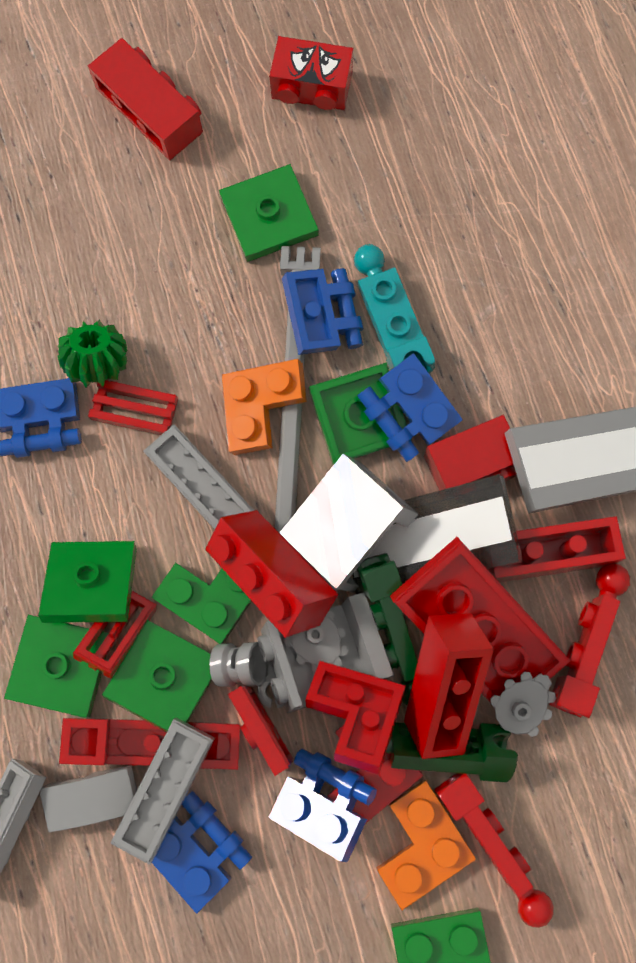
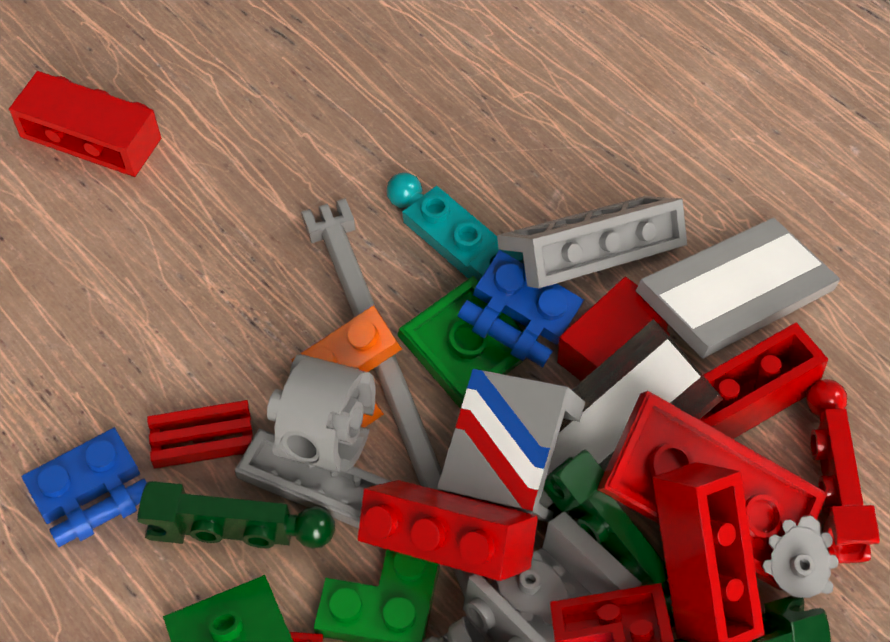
camera: 25 degrees left, 20 degrees down
(88, 467) = (210, 519): none -> dark green plate
(92, 353) = (131, 389): green gear -> none
(215, 442) = (322, 413): none -> light grey brick
(268, 212) = (271, 187): green plate -> none
(311, 73) = (260, 41): red brick -> none
(312, 311) = (367, 258): blue plate -> none
(497, 371) = (597, 239): none -> light grey fence

